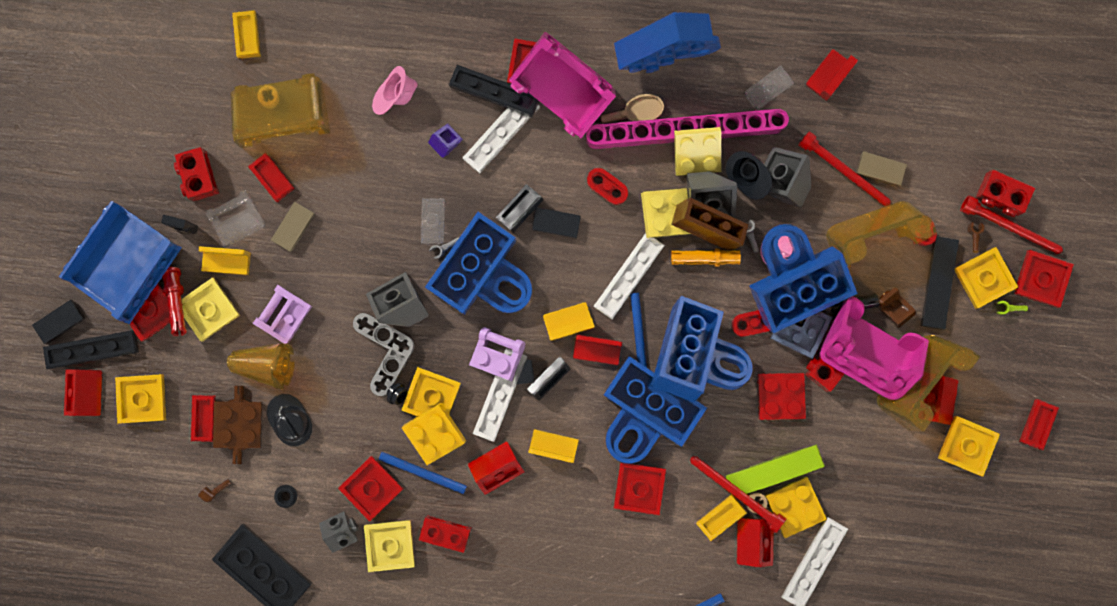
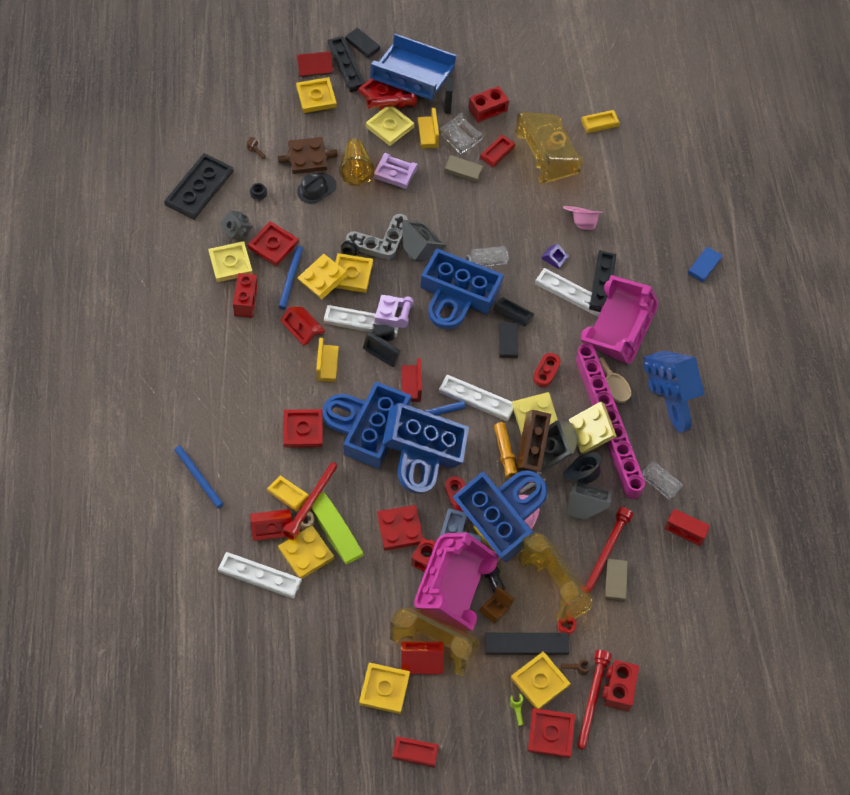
camera: 75 degrees right, 25 degrees down
(202, 418) = (308, 132): red tile -> none
(568, 321) = (431, 360): yellow panel -> none

